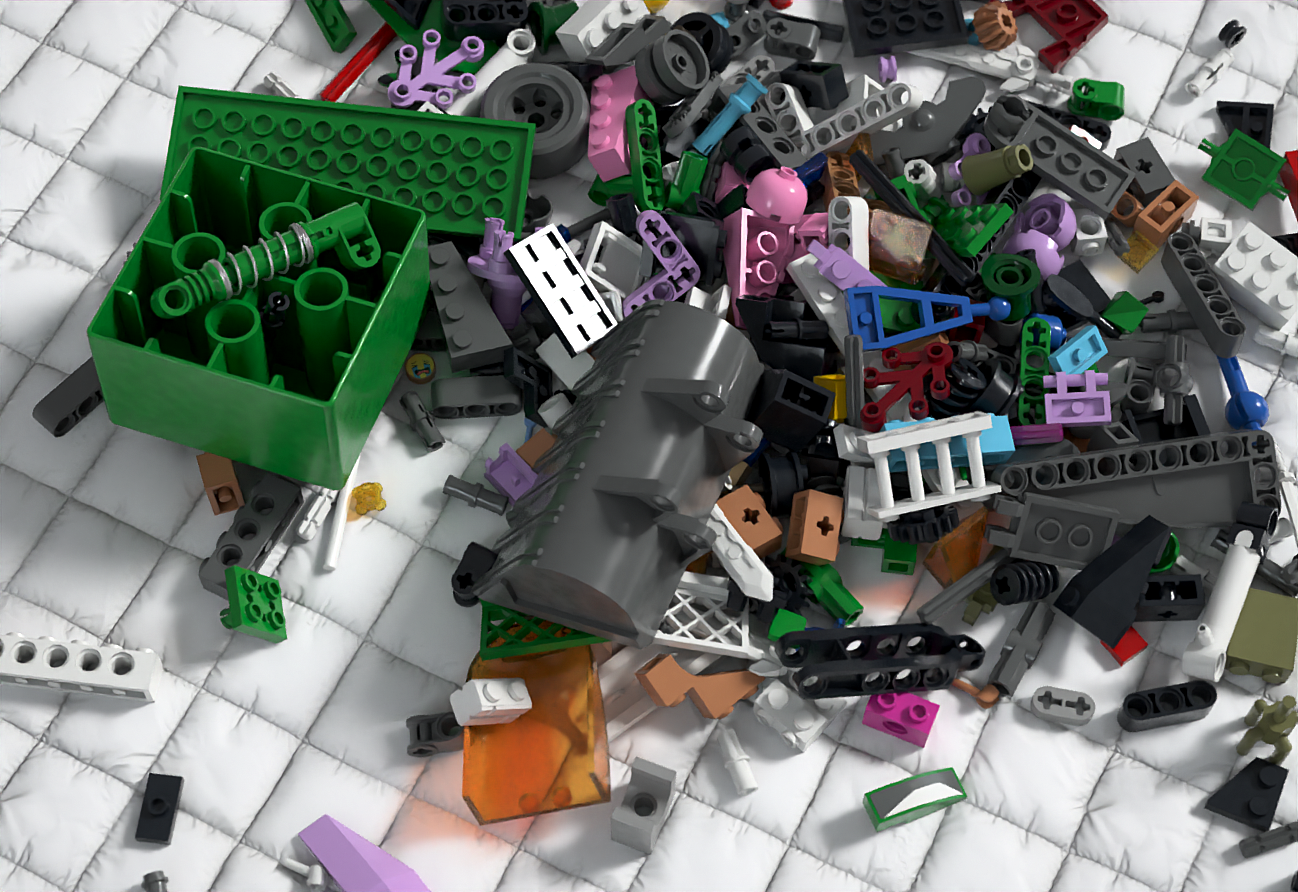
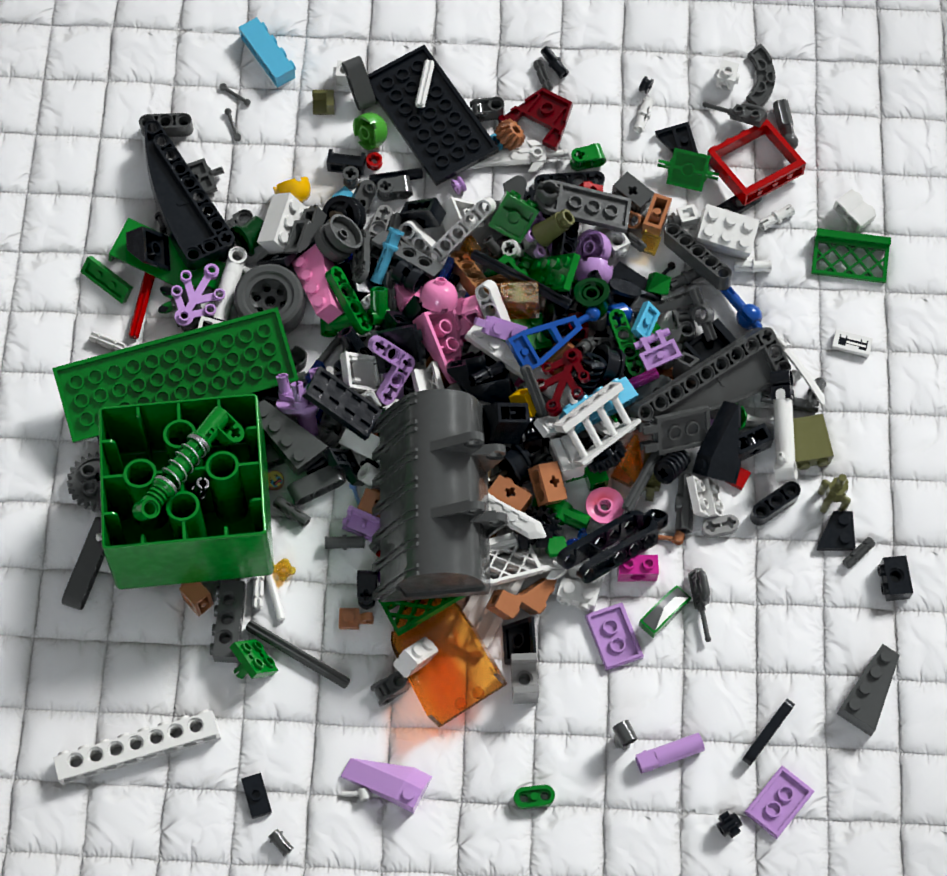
camera: 25 degrees left, 5 degrees up
(327, 628) = (297, 654): none -> dark grey axle
(432, 608) = (351, 618): none -> nougat plate
(670, 742) = (519, 638): none -> black slope
(737, 762) = (561, 632): white axle -> none
(817, 804) = (614, 636): none -> lavender tile
(896, 587) = (604, 497): none -> bright pink dish
(944, 130) = (514, 216): none -> green plate
(982, 799) = (701, 595): none -> dark grey piece
(1055, 650) = (705, 497): none -> white slope

